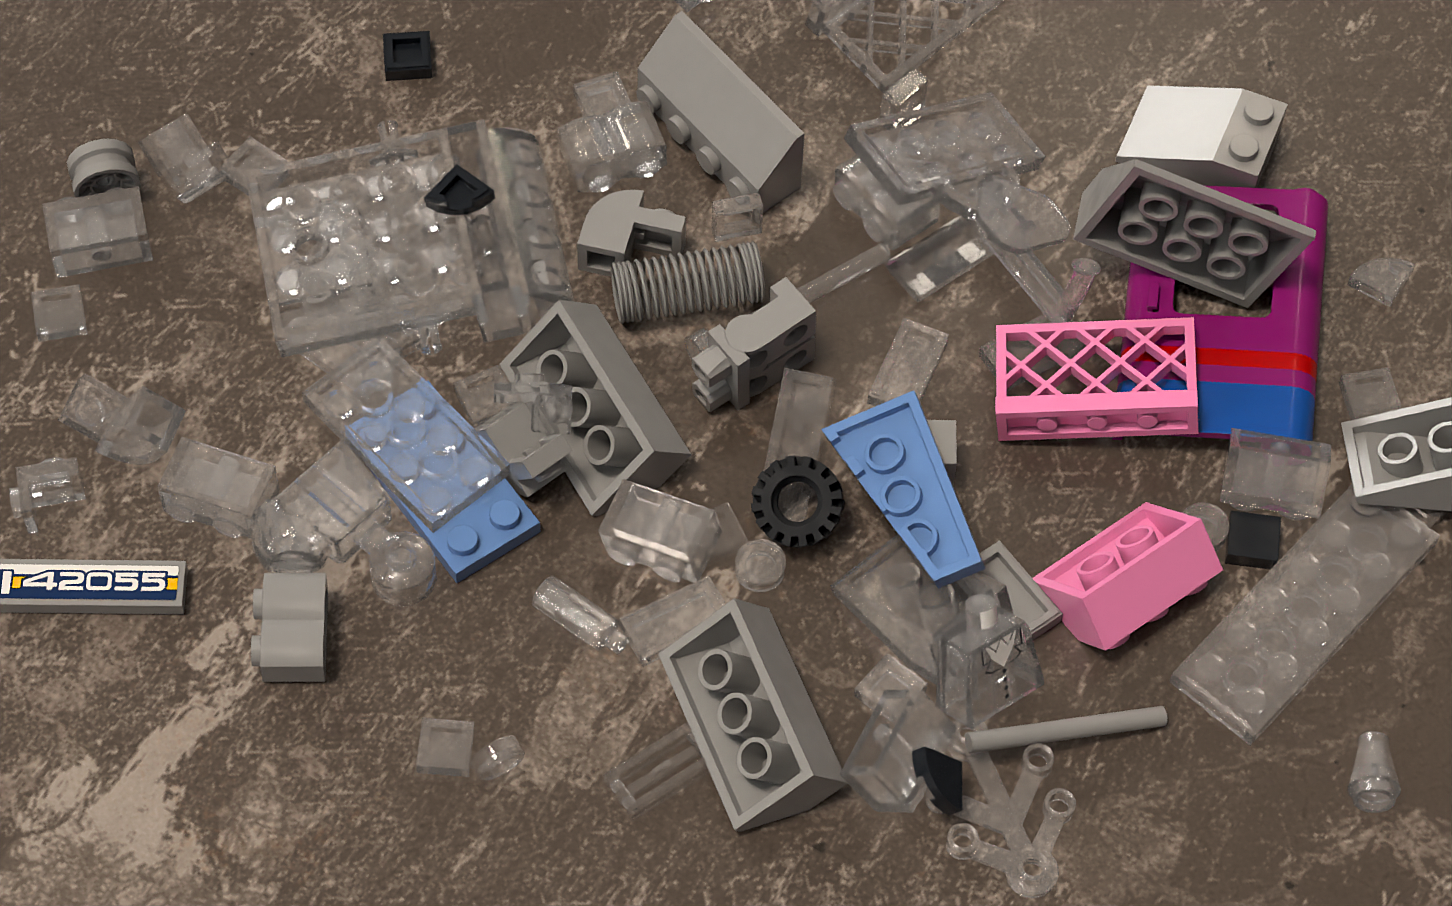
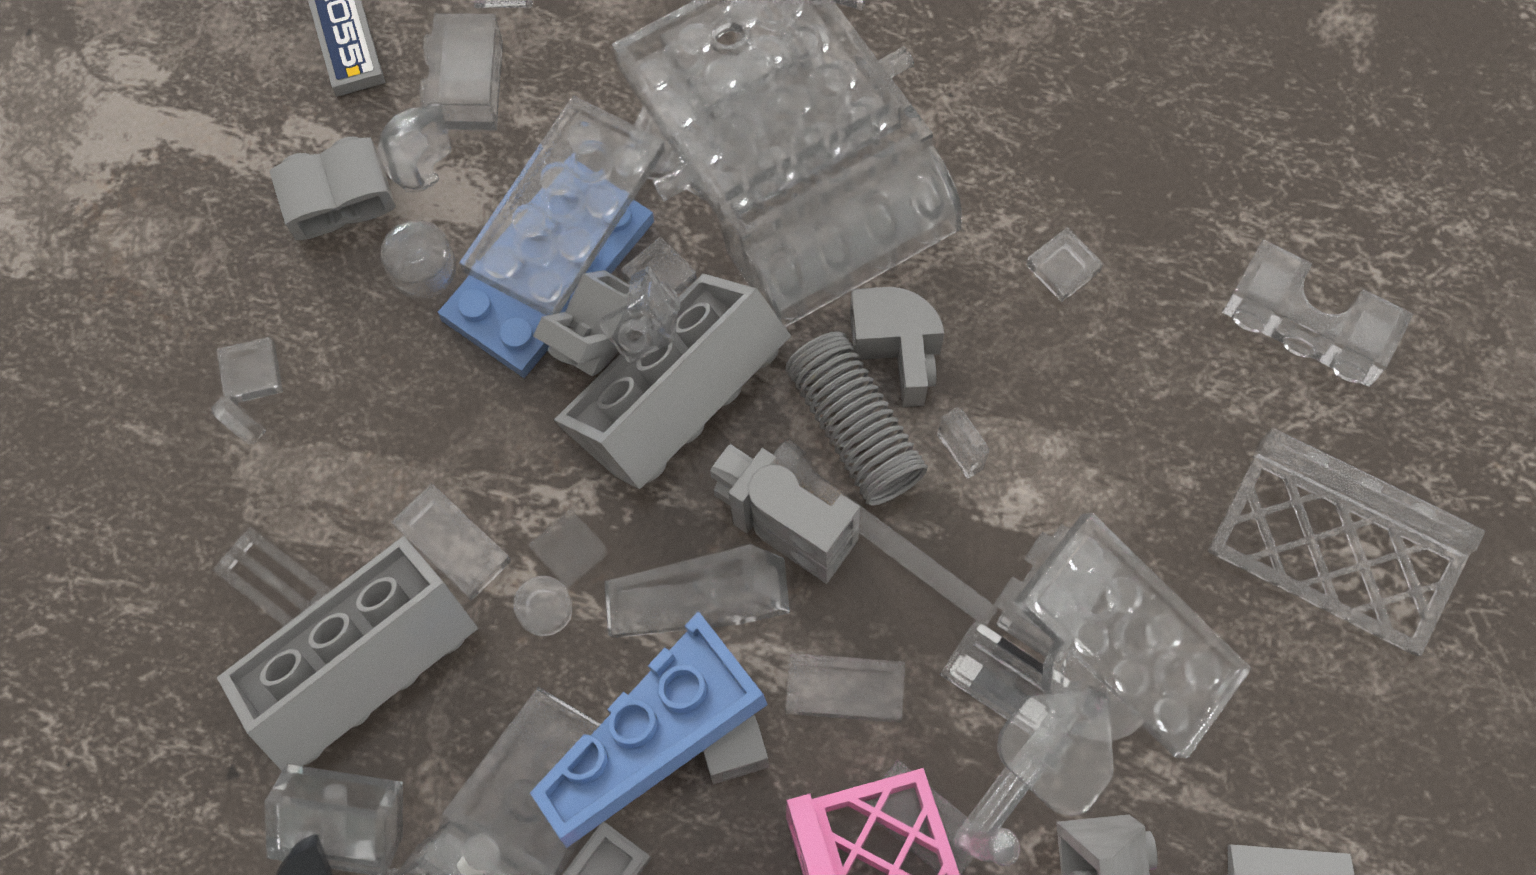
camera: 75 degrees right, 10 degrees up
(340, 502) = (470, 176): clear torso -> none
(407, 55) = (1040, 64): black tile -> none
(459, 193) = (828, 140): black tile -> none
(579, 615) = (425, 444): clear cylinder -> none
(612, 147) = (1002, 290): clear brick -> none
(659, 532) = (534, 488): clear brick -> none
(721, 114) = (1074, 381): light grey slope -> none
(780, 475) = (587, 615): black tyre -> none
(887, 675) = (430, 787): clear tile -> none
(905, 95) = (1194, 572): clear tile -> none

